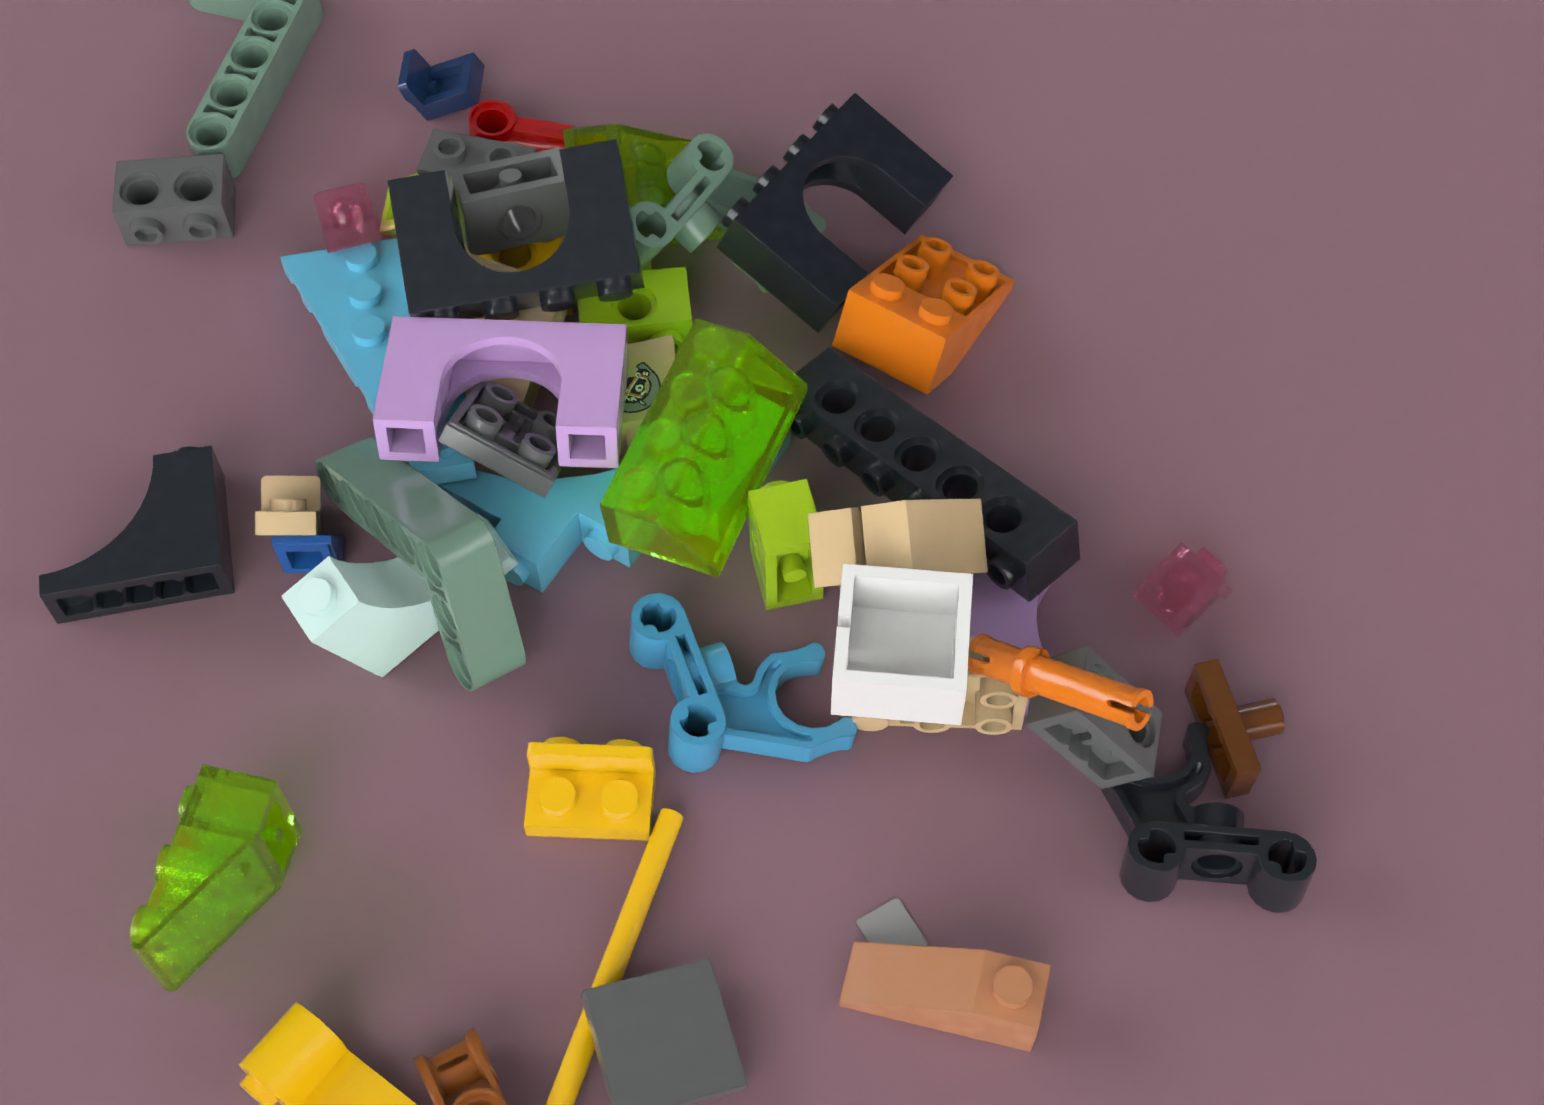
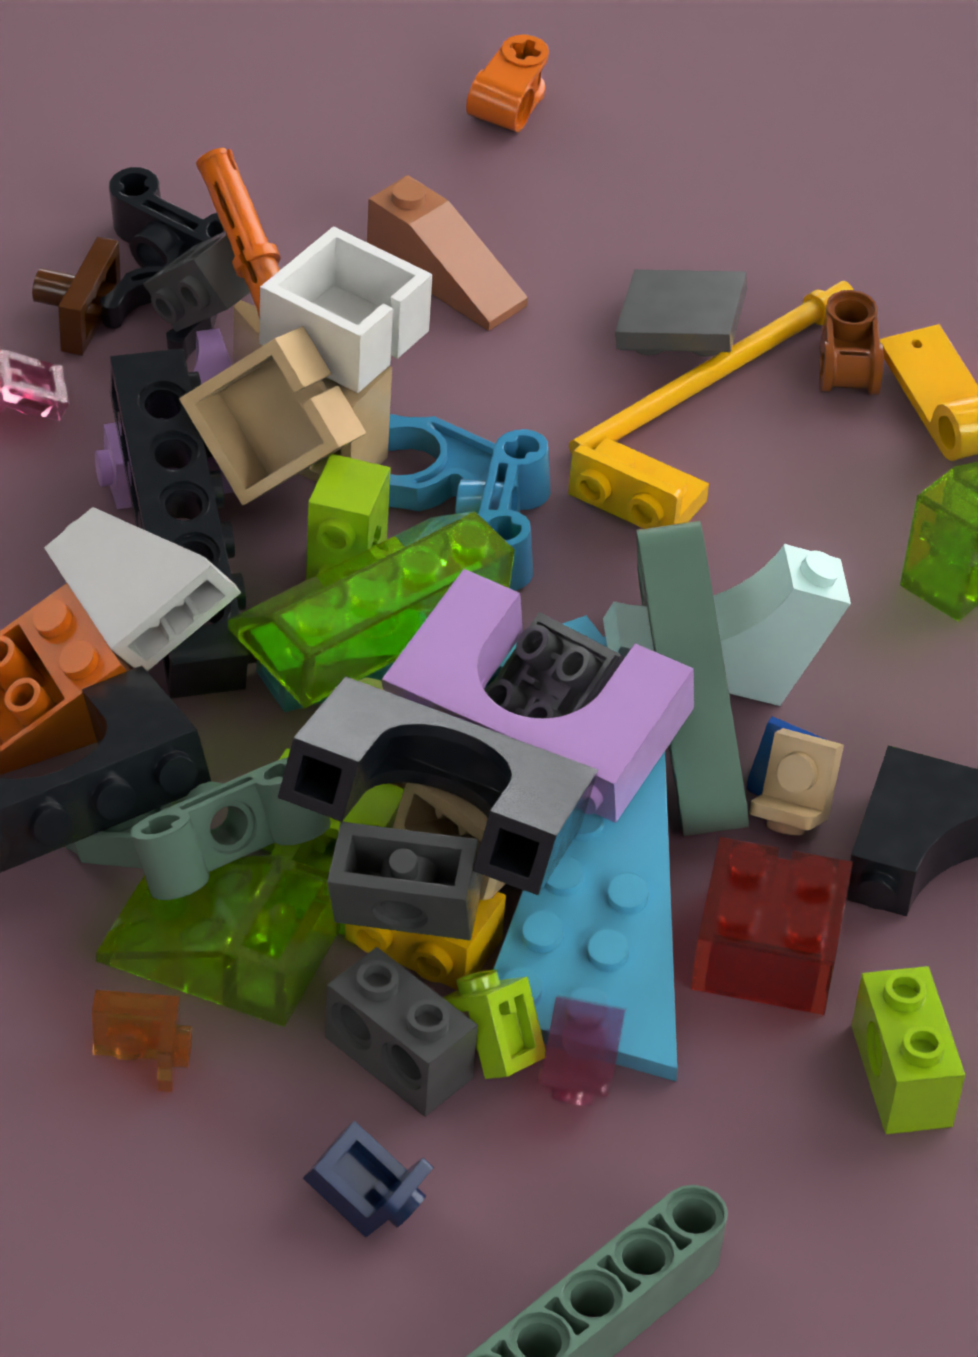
camera: 155 degrees left, 15 degrees down
(115, 334) = (907, 1050): none -> lime brick
(174, 199) = (776, 1186): dark grey brick -> none
(252, 367) = (771, 926): none -> clear red piece
(499, 122) = (333, 1071): red piece -> none
(652, 107) = (144, 1028): none -> clear orange bracket
(891, 925) = (451, 325): light grey sticker -> none
(894, 358) = (138, 585): none -> white slope

